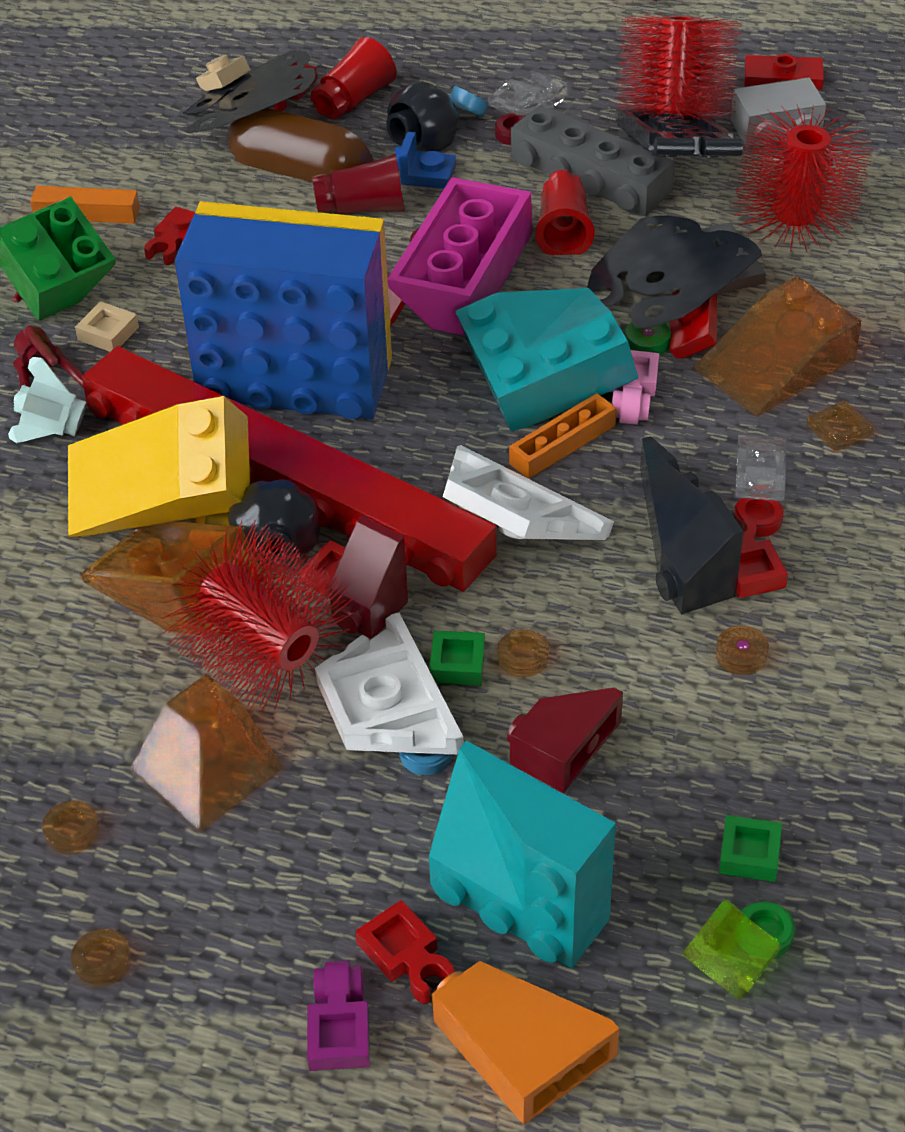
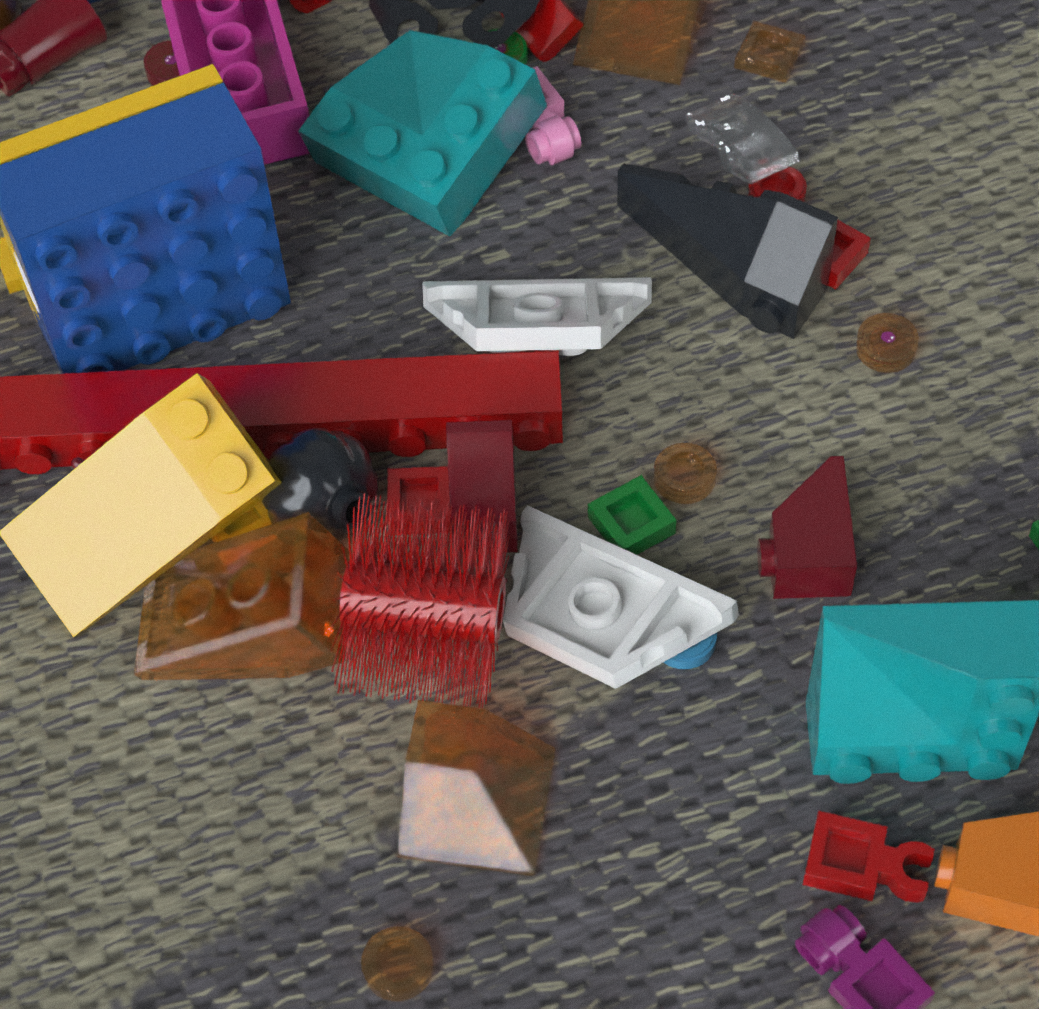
camera: 35 degrees left, 10 degrees up
(562, 436) = (515, 212): orange piece -> none

